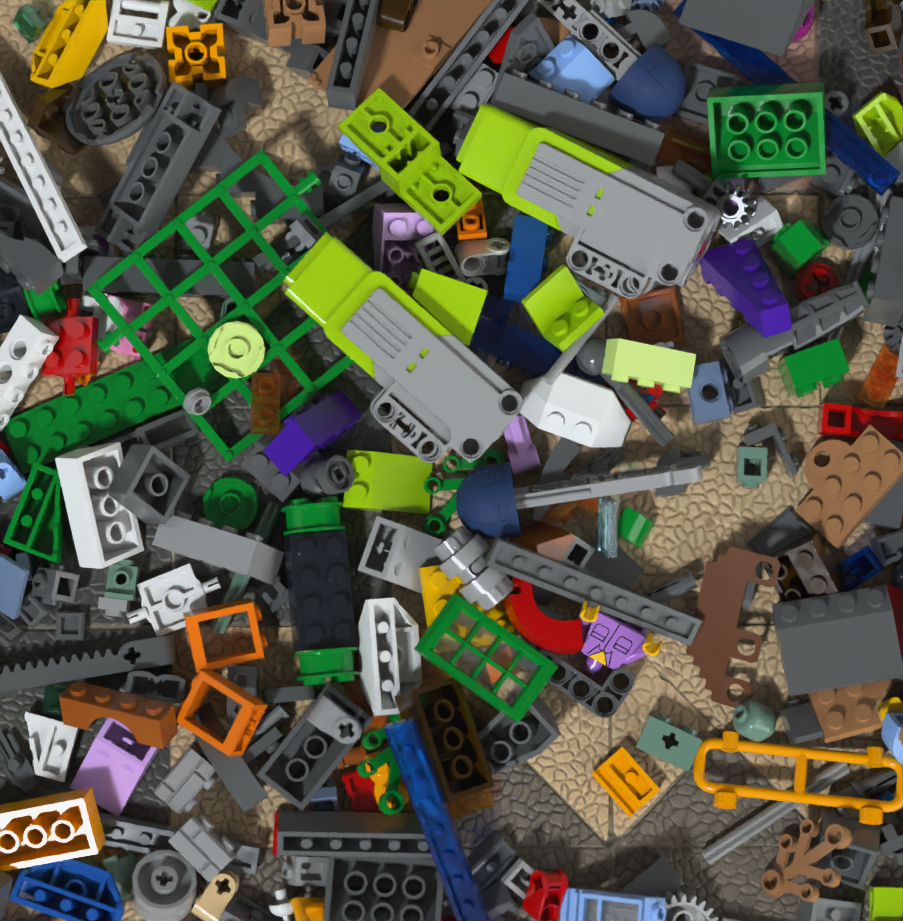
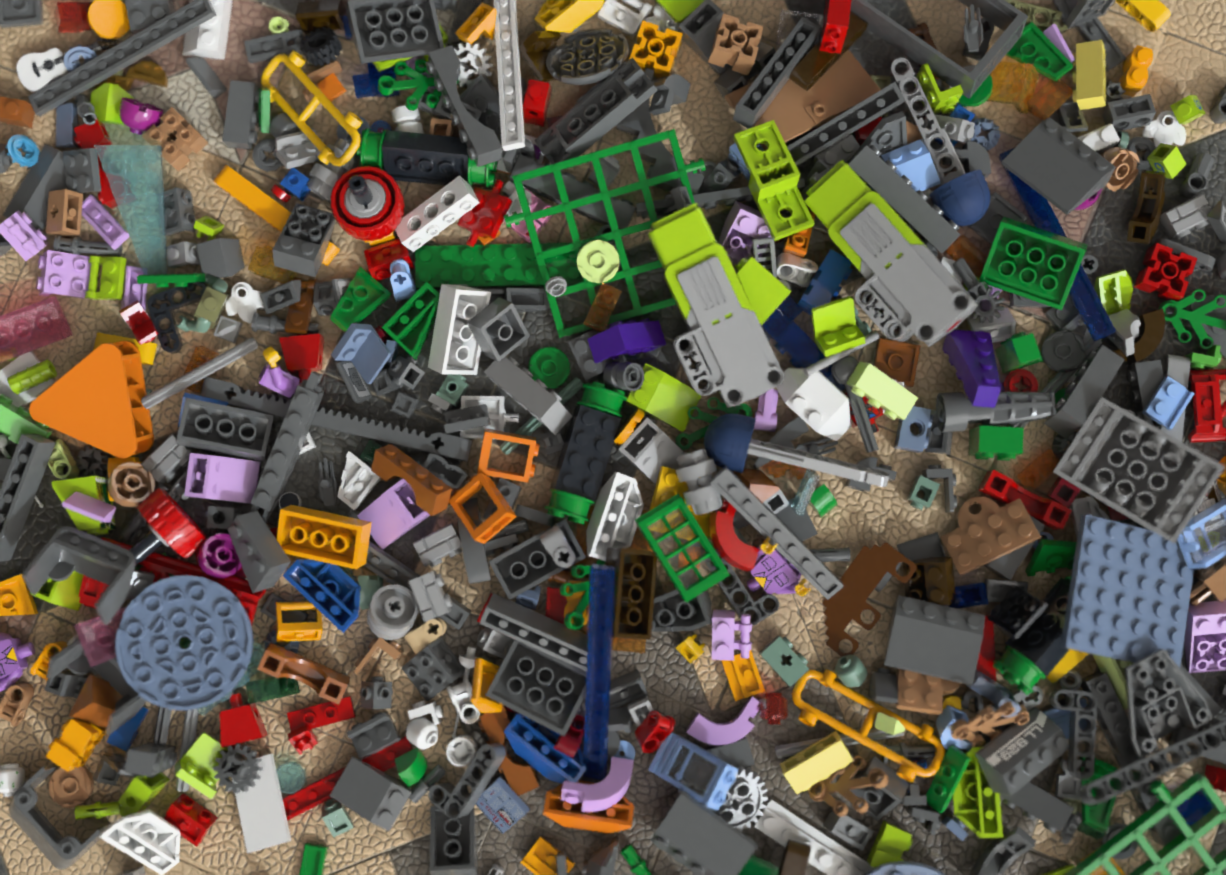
camera: 25 degrees right, 0 degrees up
(77, 180) = (537, 100): none -> red torso
(155, 610) = (466, 418): none -> dark grey bracket
(359, 535) = (629, 426): none -> light orange tile
(548, 777) = (689, 649): none -> yellow tile
(581, 742) = (723, 635): none -> lavender brick
(630, 863) = (727, 732): none -> lavender arch
(679, 806) = (773, 708): none -> clear red head
(758, 849) = (816, 762): none -> light yellow brick
(825, 766) = (888, 724): none -> yellowish green slope

